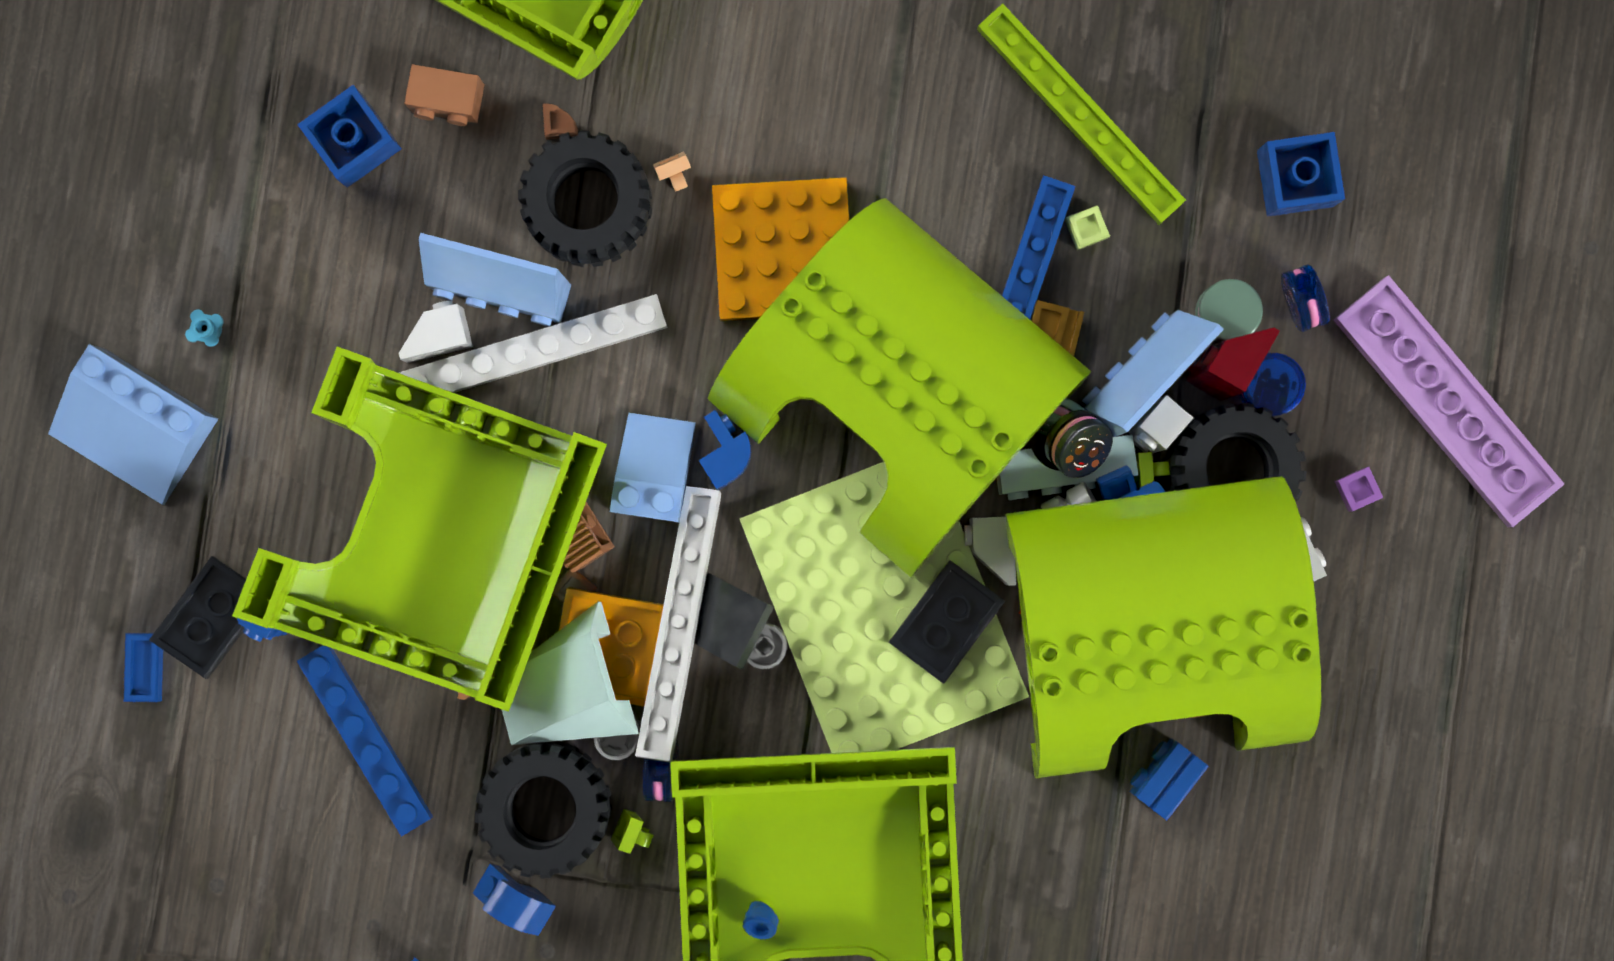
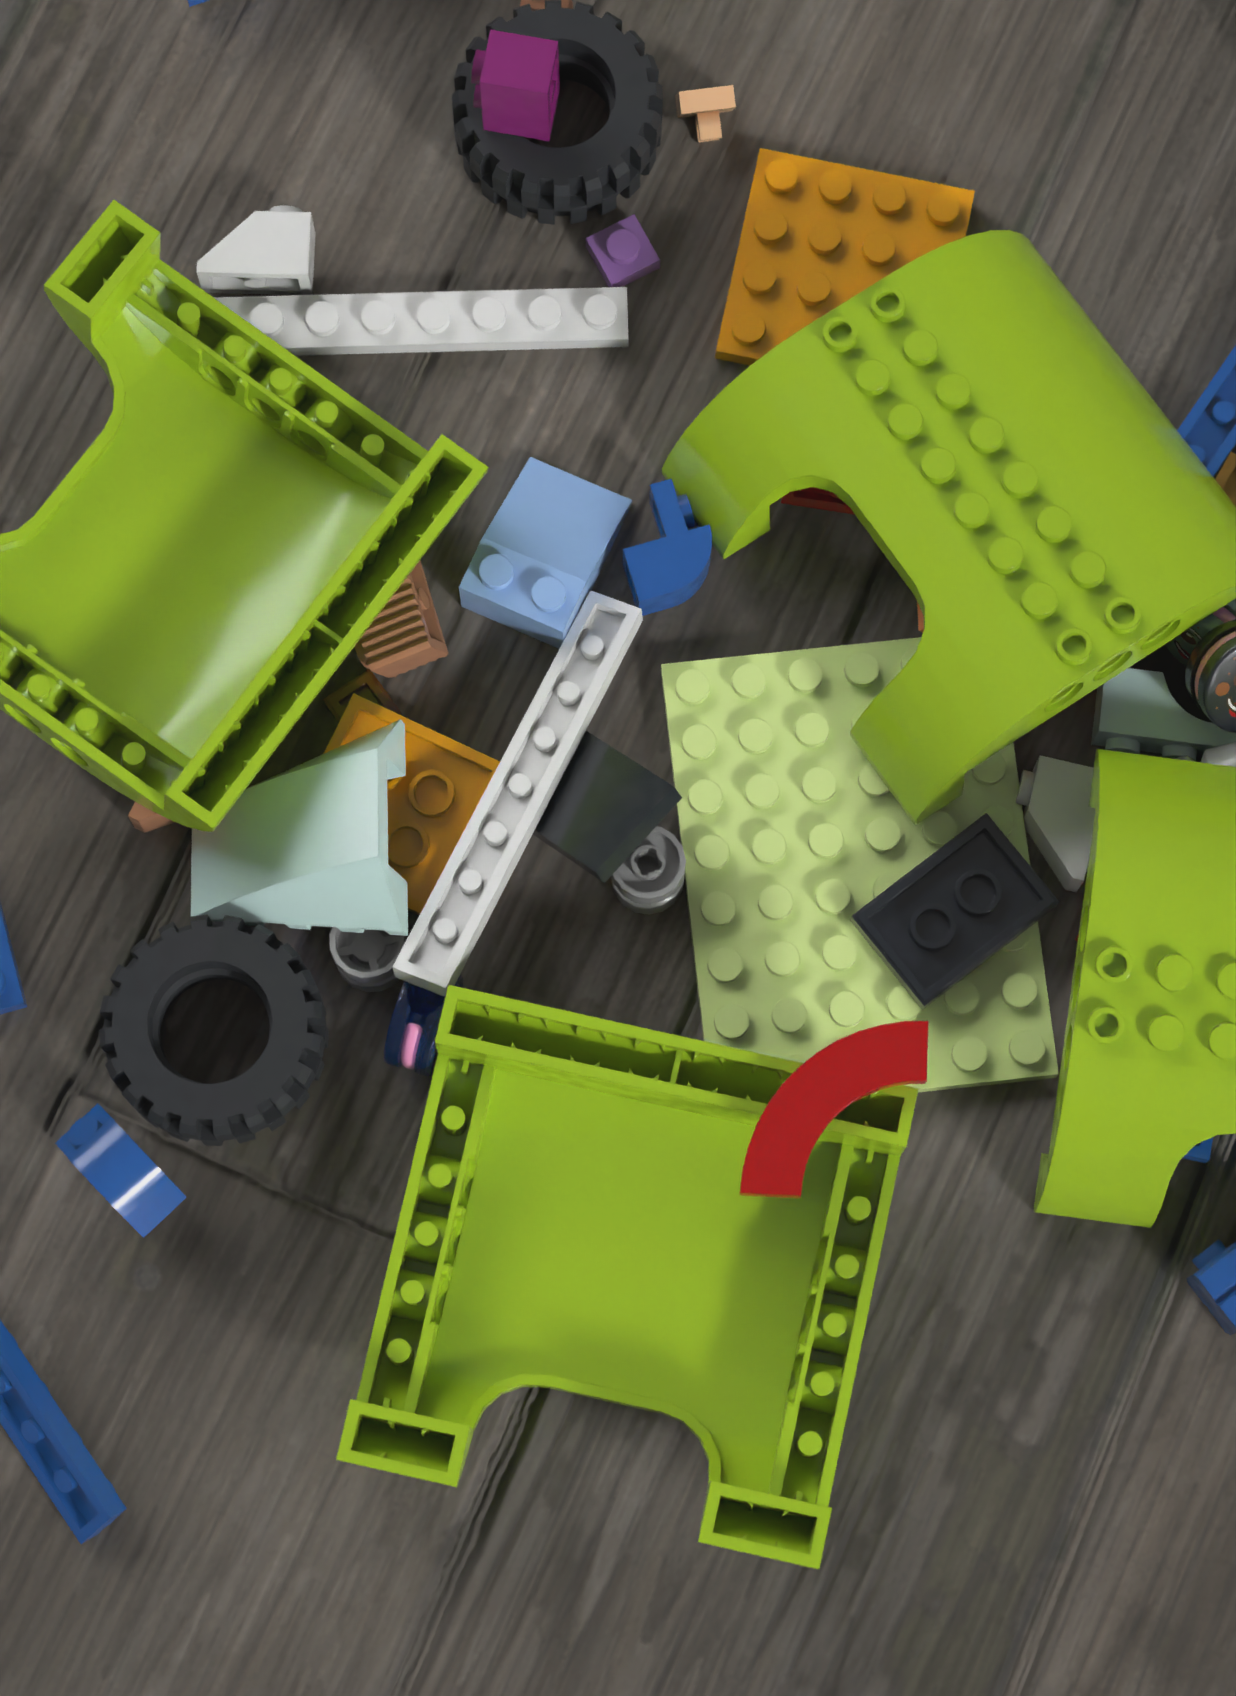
camera: 15 degrees right, 10 degrees down
(493, 280) = (381, 185): light blue slope -> none
(557, 203) = (517, 84): none -> magenta brick
(630, 831) = (342, 1112): lime tile -> none
(648, 272) = (622, 252): none -> medium lavender plate
(760, 921) = (516, 1311): blue tile -> none
(900, 767) = (821, 1090): none -> red tile

